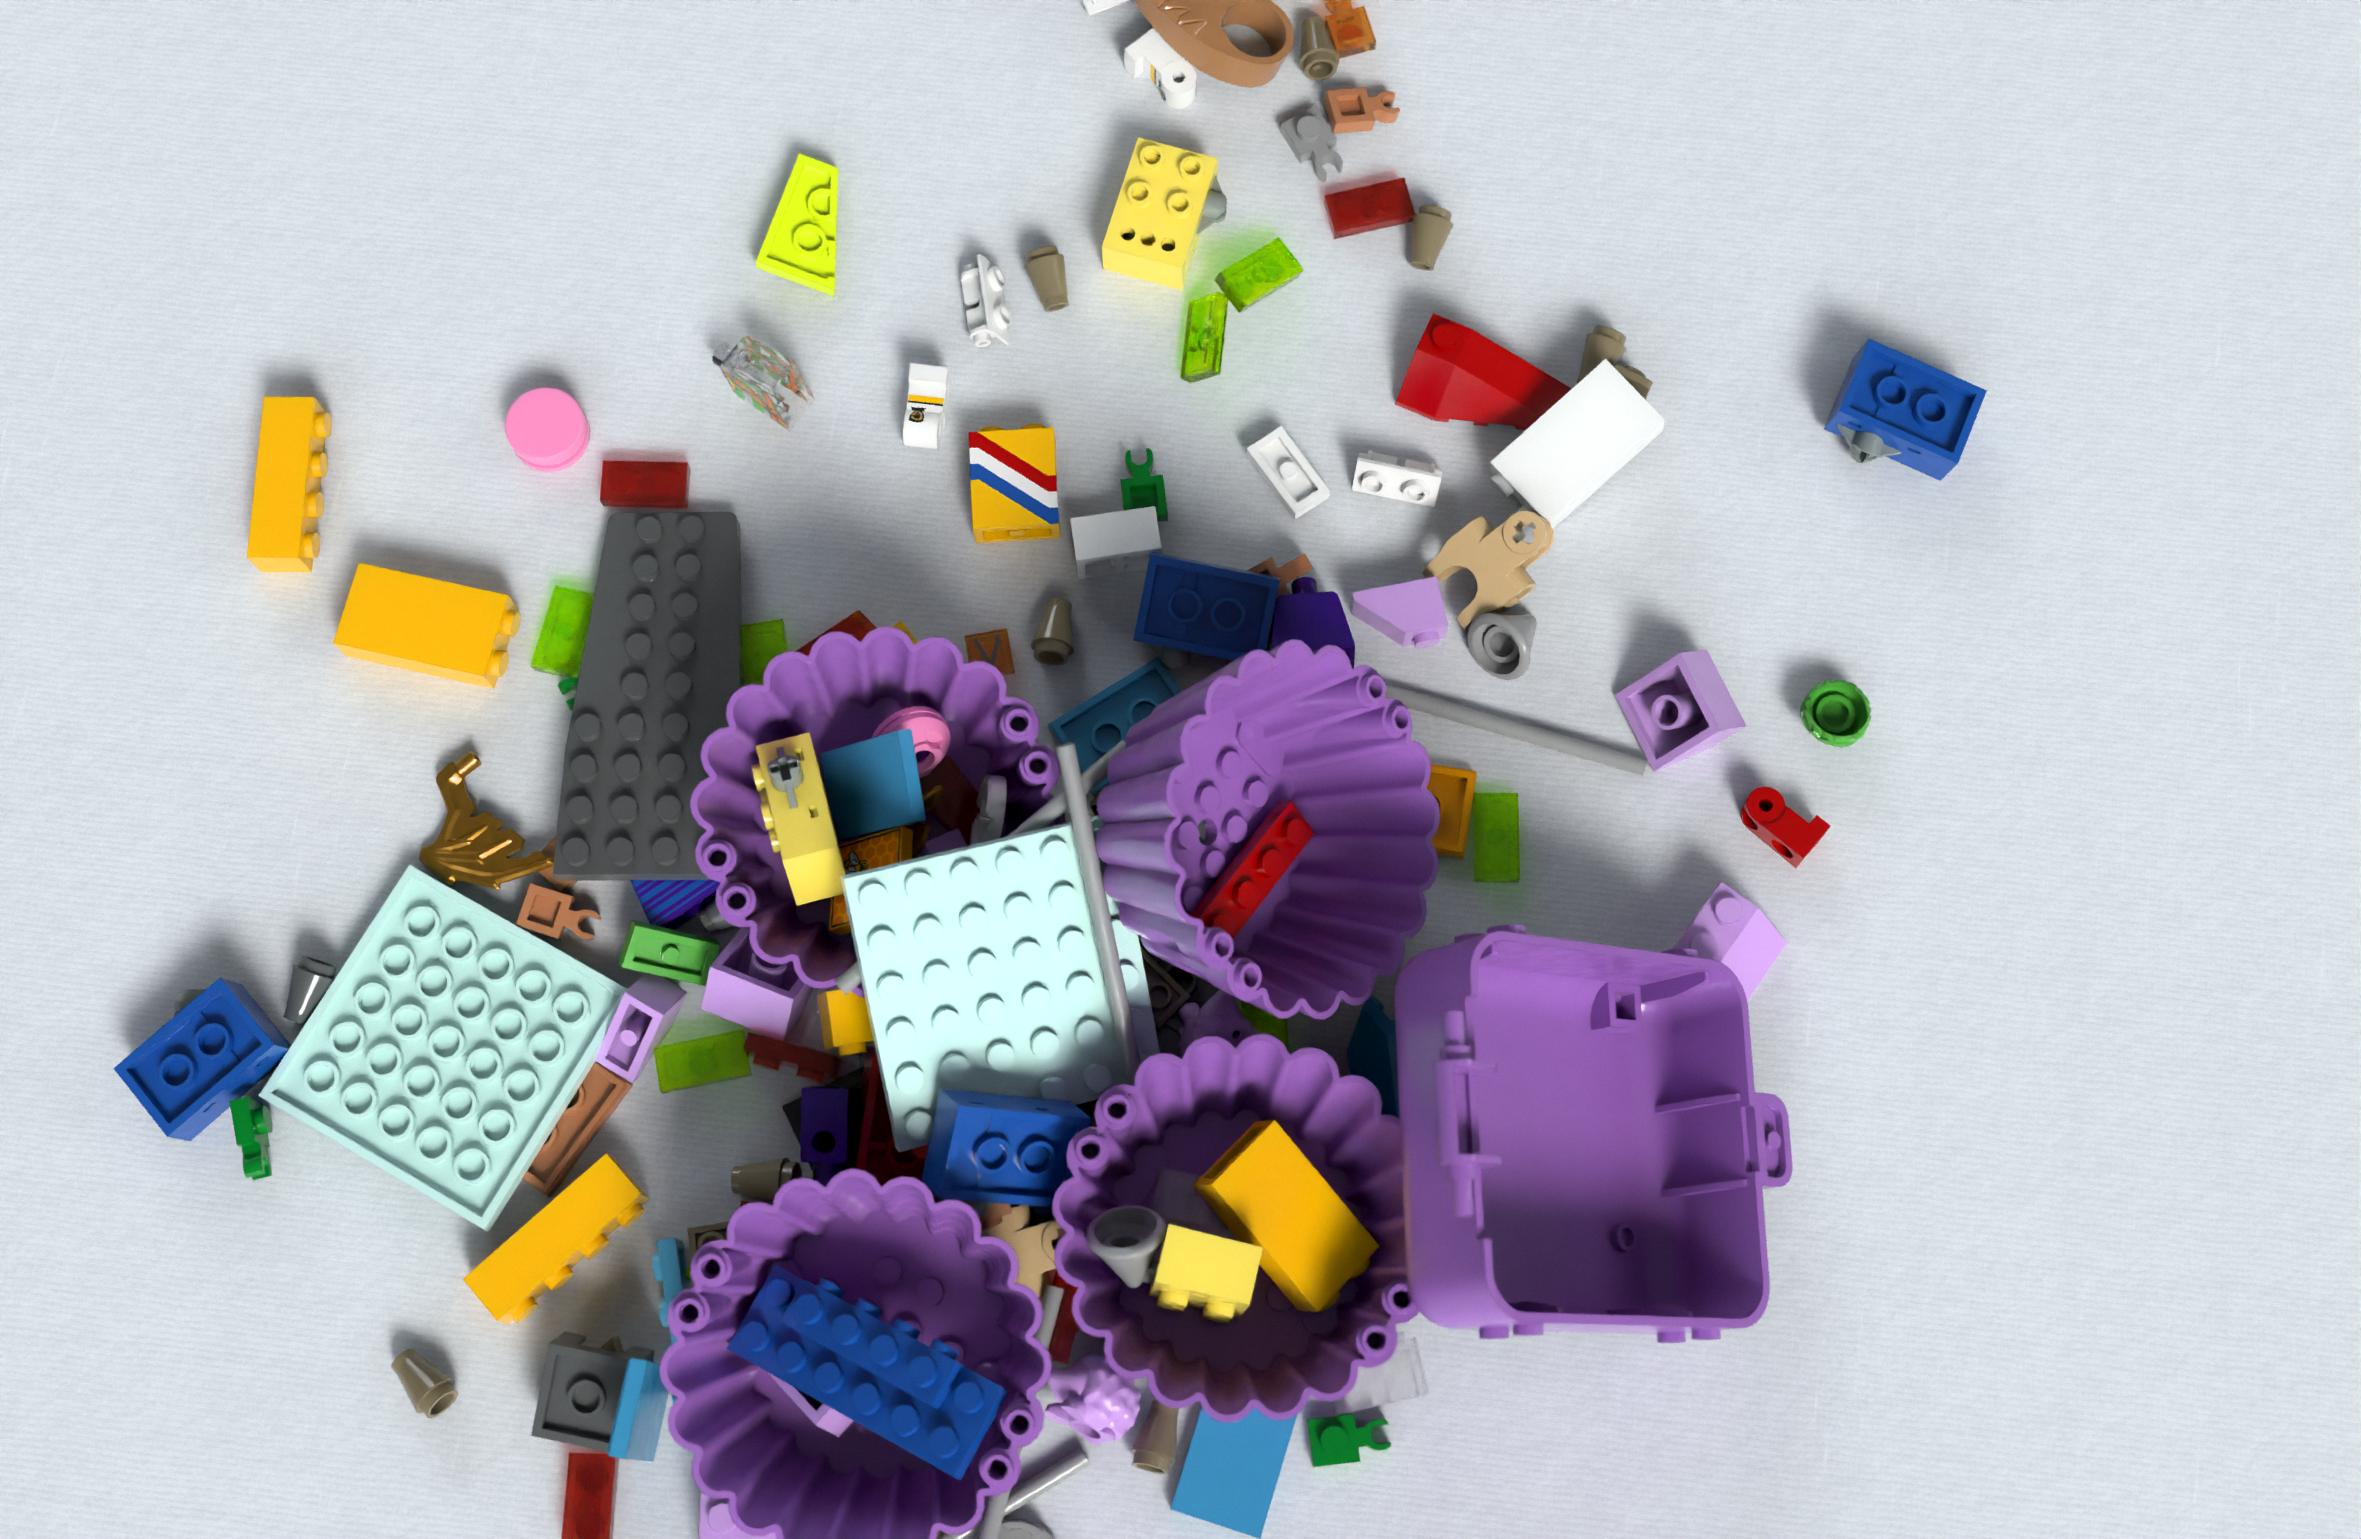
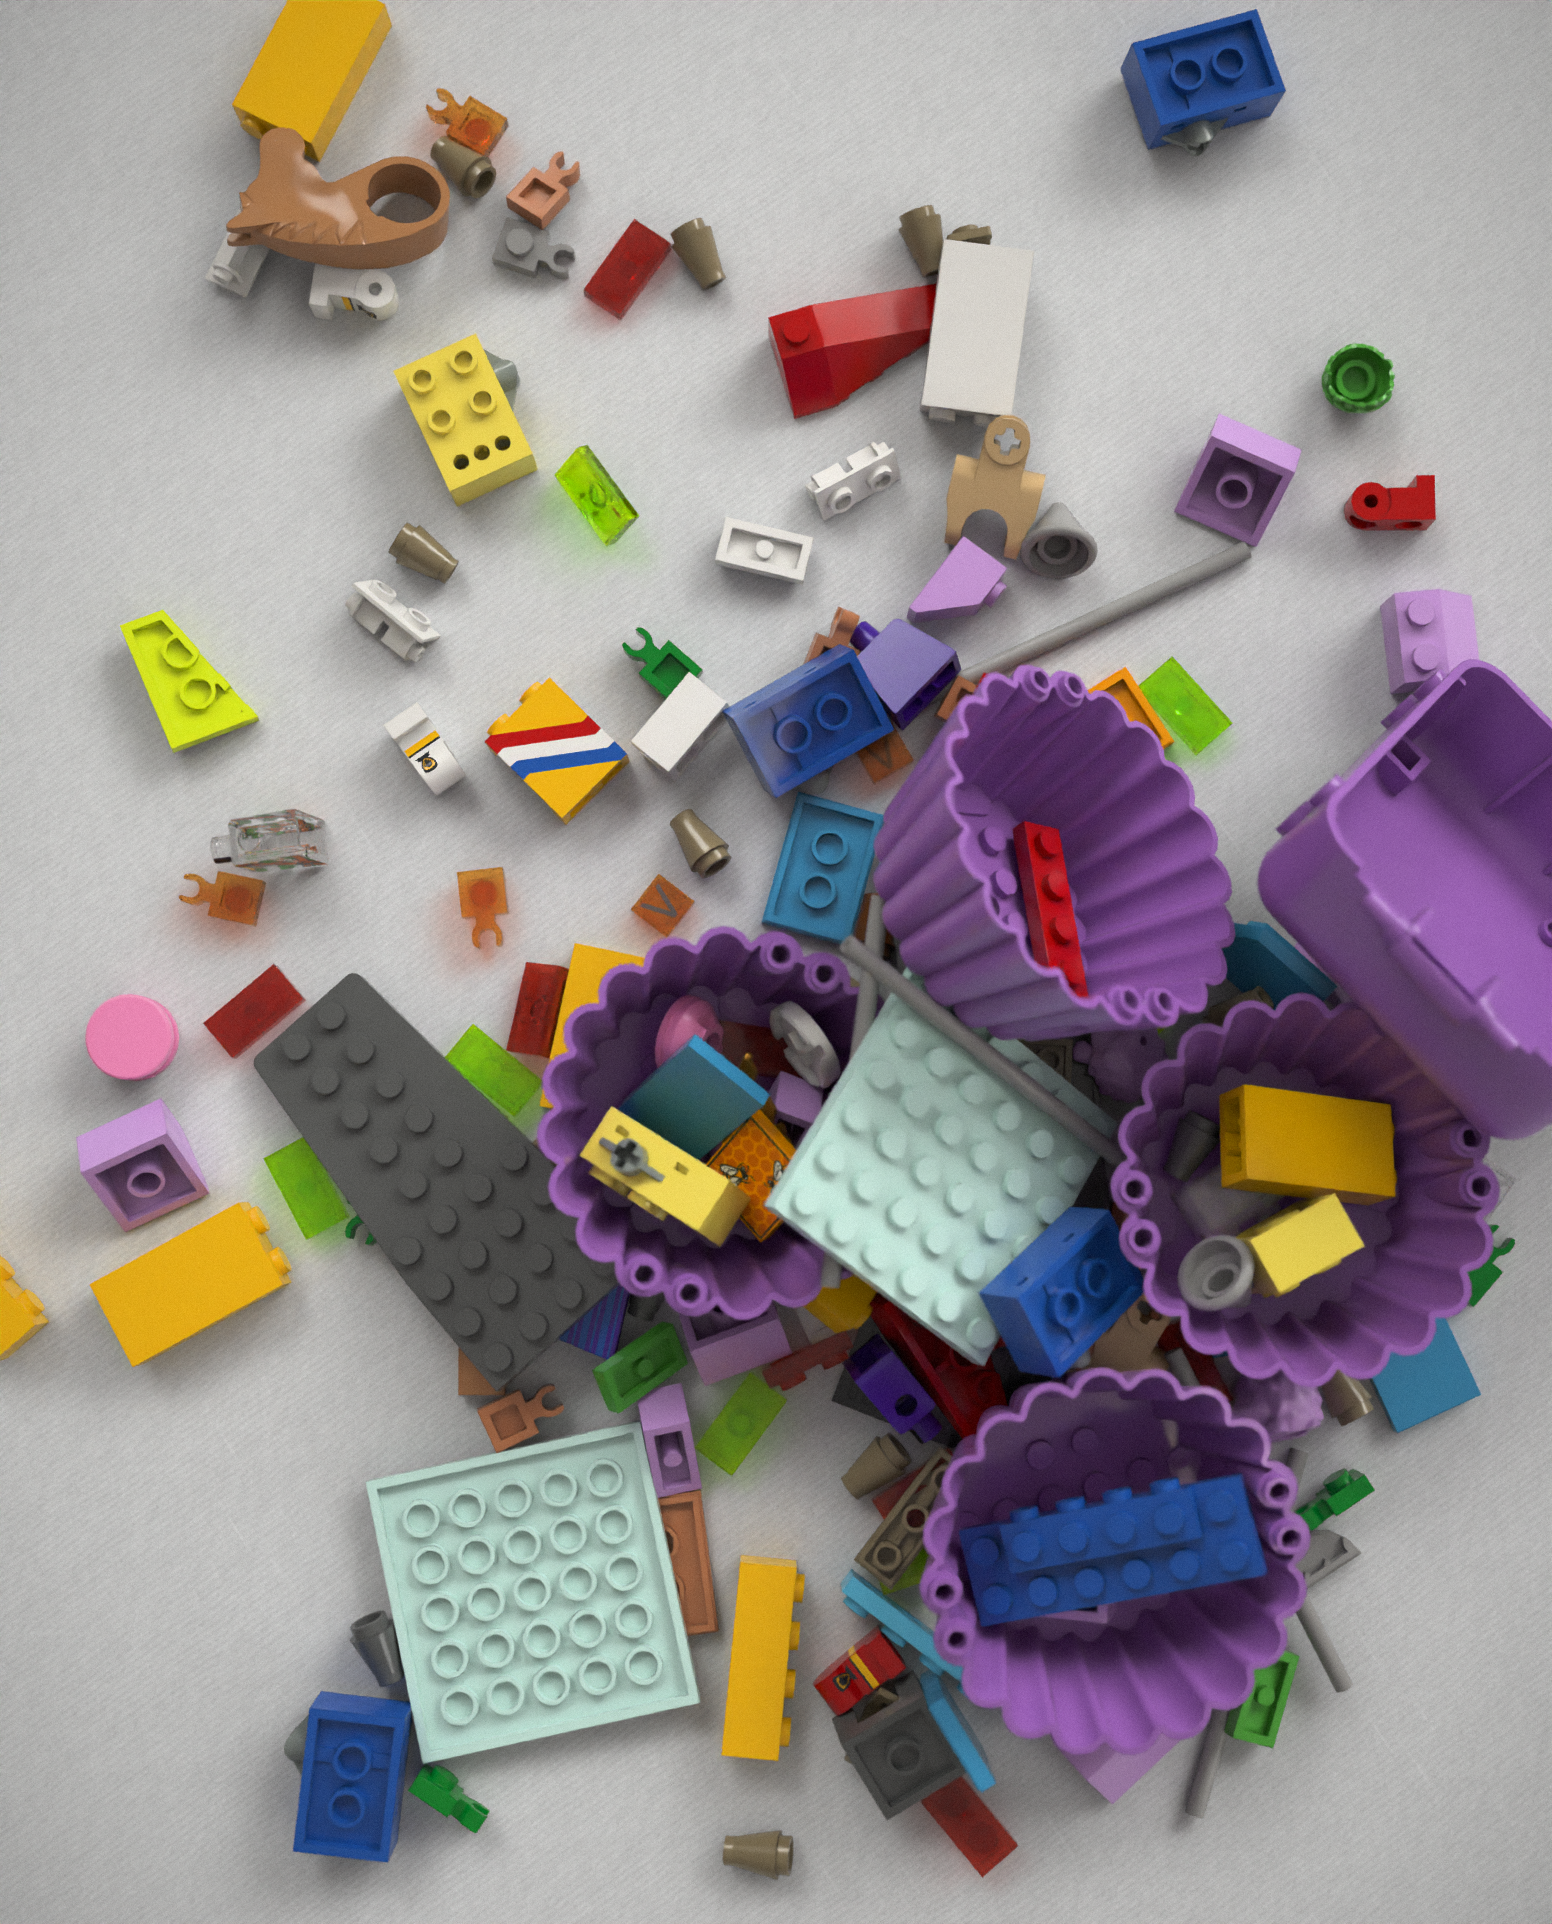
camera: 45 degrees left, 10 degrees up
(470, 518) = (141, 1165): none -> lavender slope
(474, 847) = (400, 1420): pearl gold animal -> none
(617, 1316) = (859, 1671): none -> red leg
(700, 393) = (230, 898): none -> clear orange plate
(869, 540) = (483, 897): none -> clear orange plate
(1087, 1511) = (1340, 1493): none -> green plate
(1203, 1145) = (1191, 1144): none -> dark grey cone
(1259, 275) = (594, 404): clear neon green plate -> none

